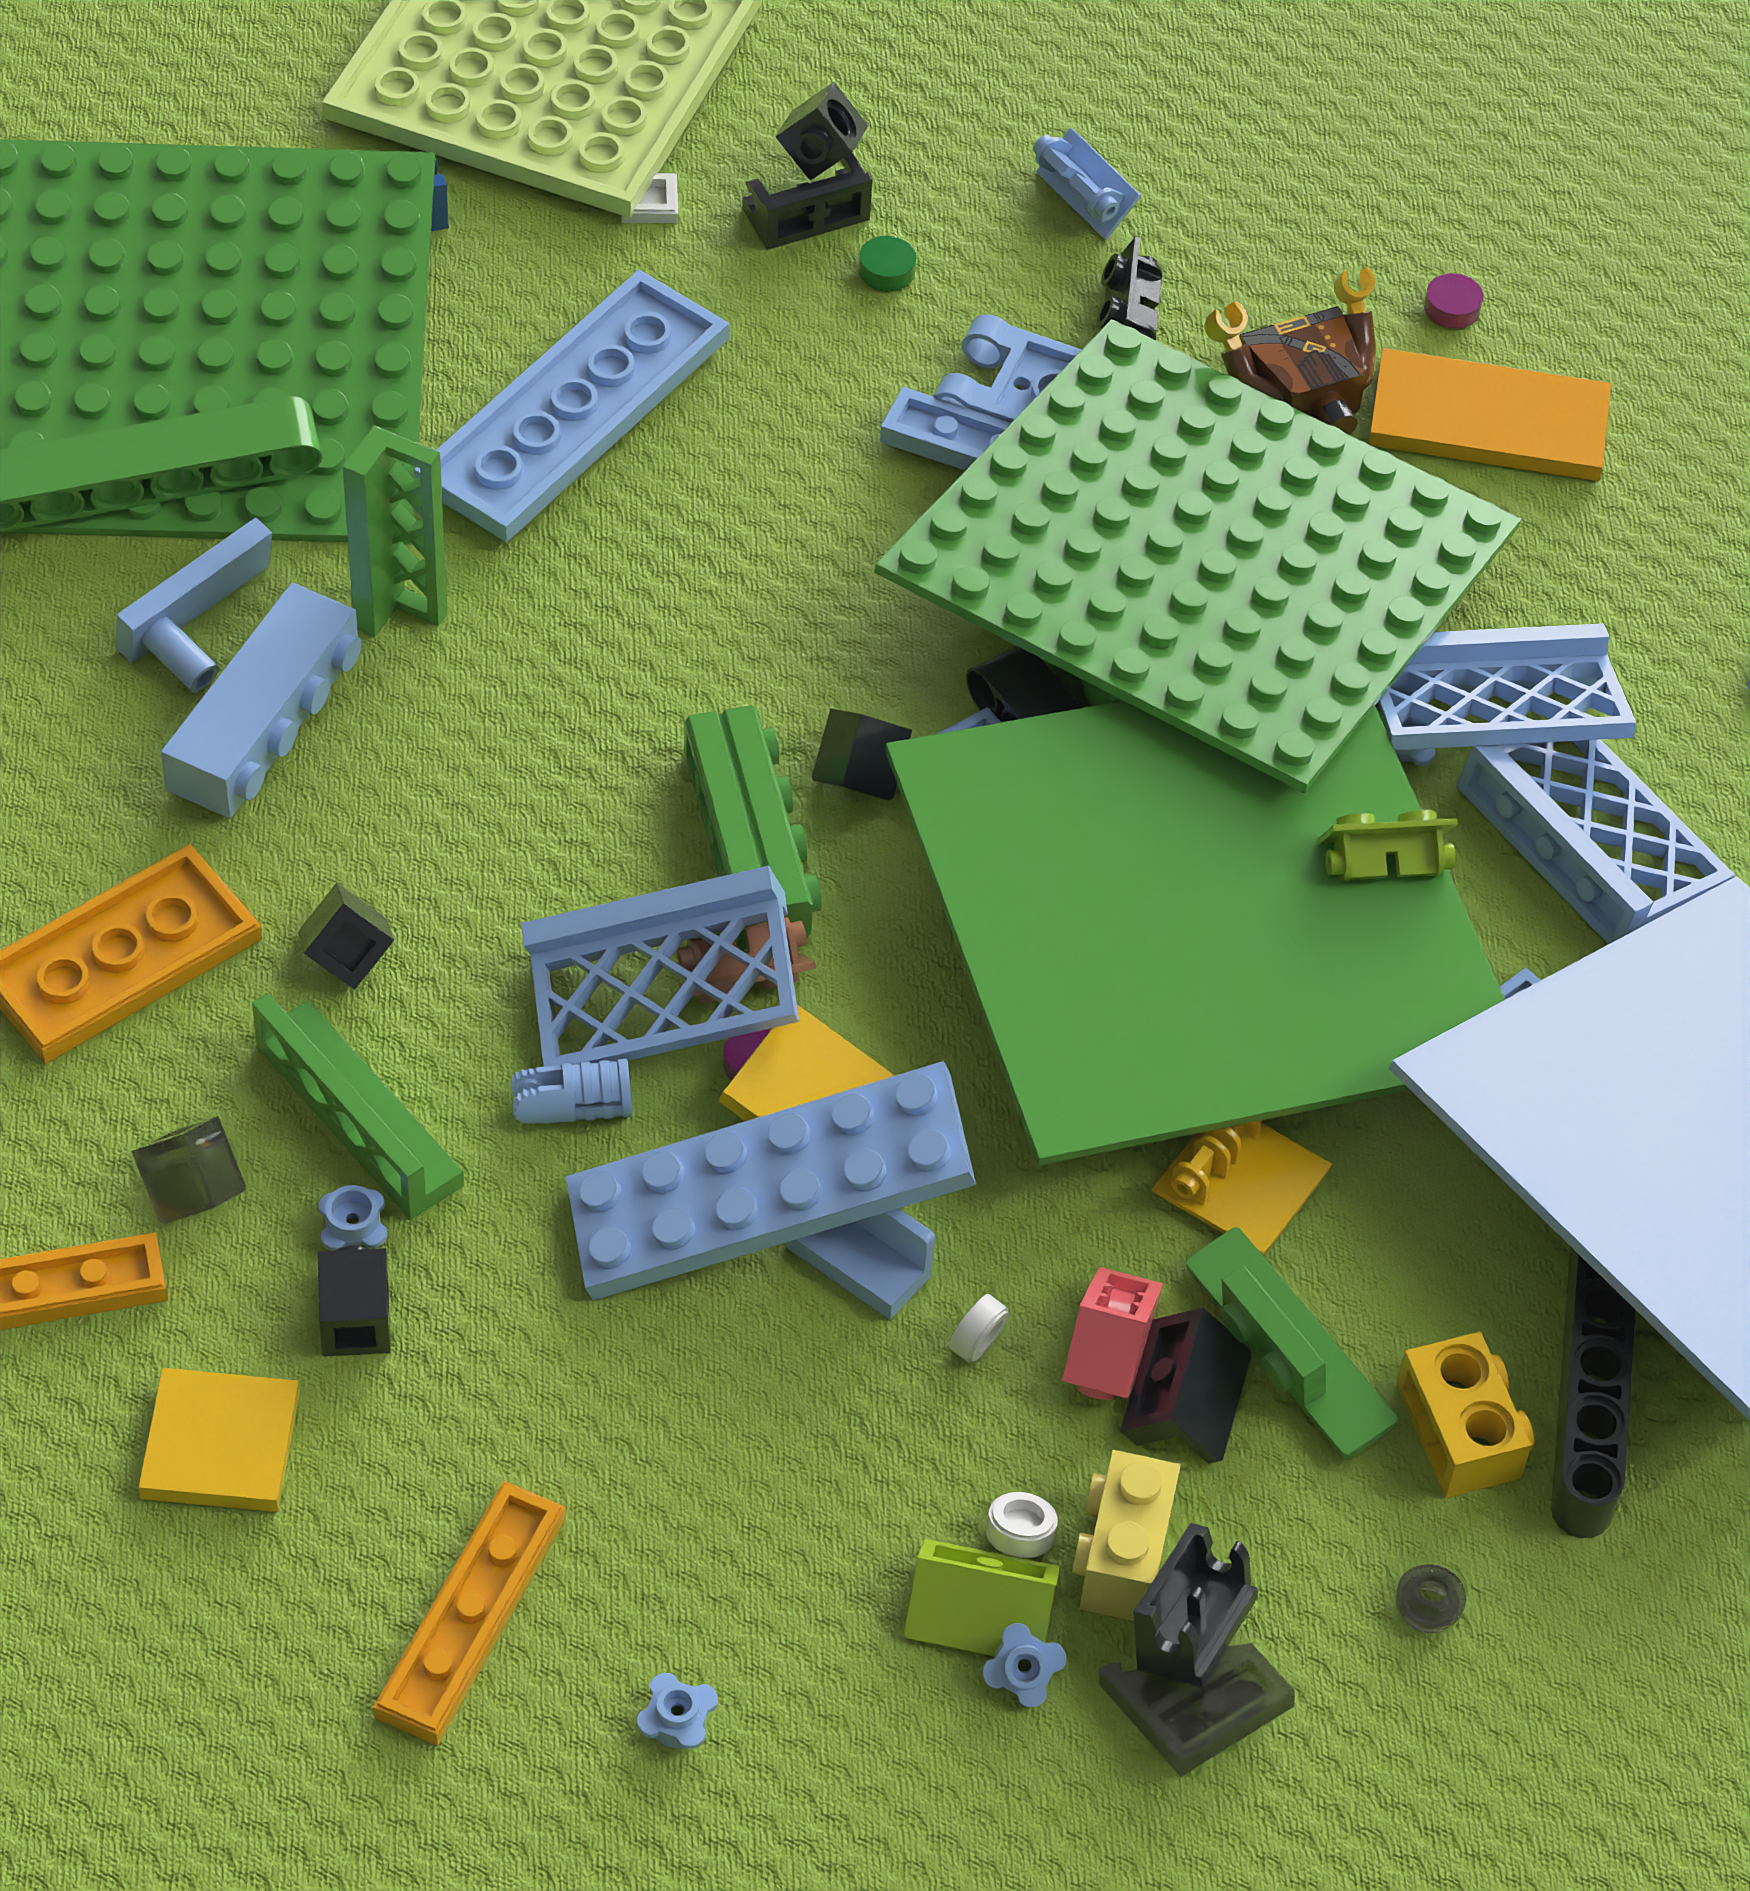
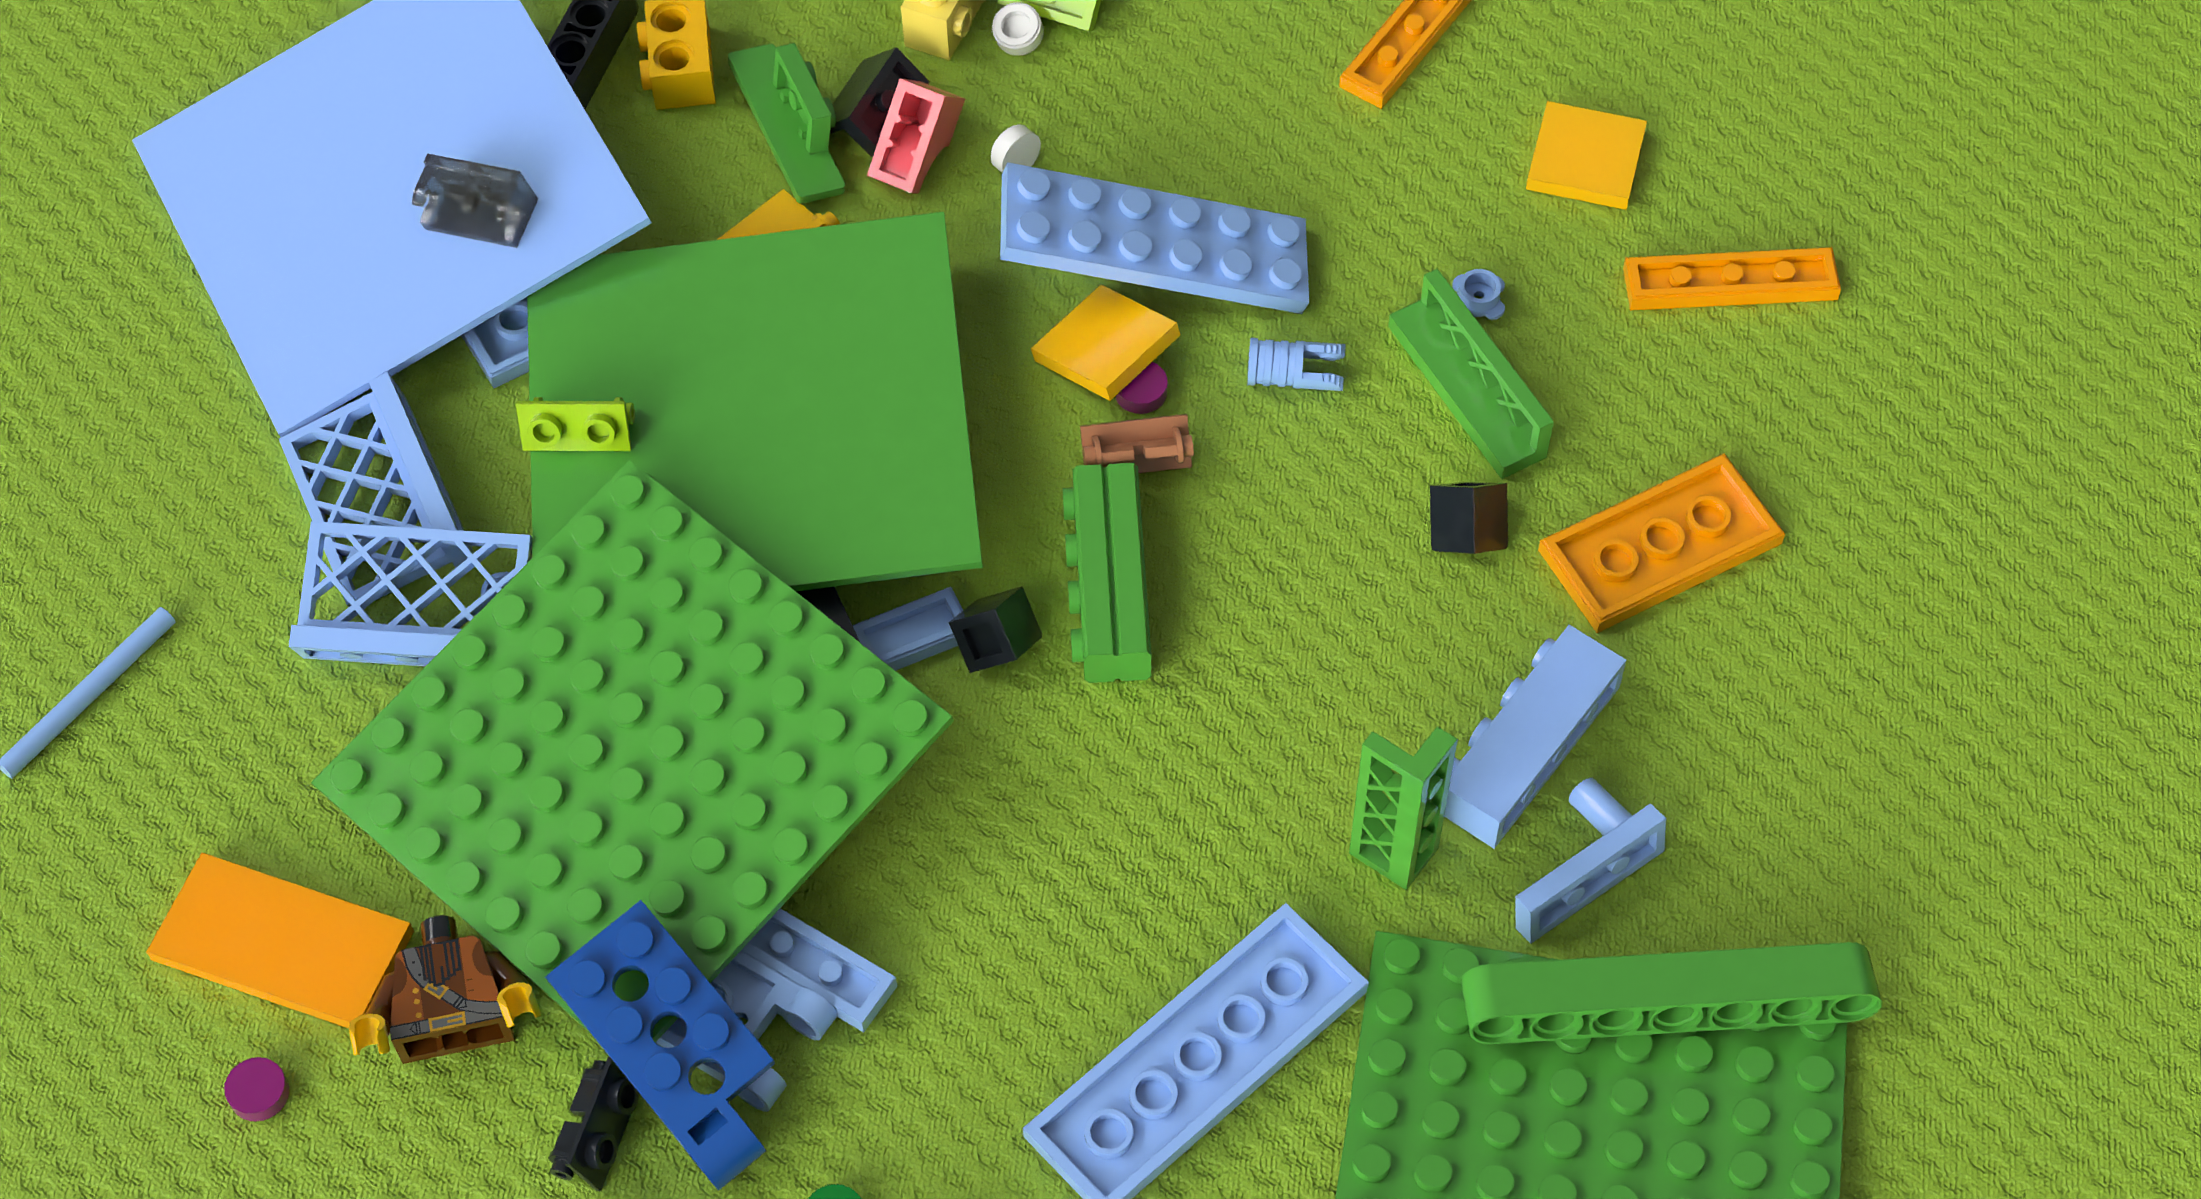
camera: 165 degrees left, 5 degrees up
(189, 1170) = (1606, 338): clear smoke panel -> none
(353, 1301) = (1482, 222): black brick -> none
(662, 921) = (1204, 453): light blue fence -> none
(1079, 320) = (624, 1029): none -> blue hinge
(1613, 1076) = (474, 200): none -> clear smoke hinge

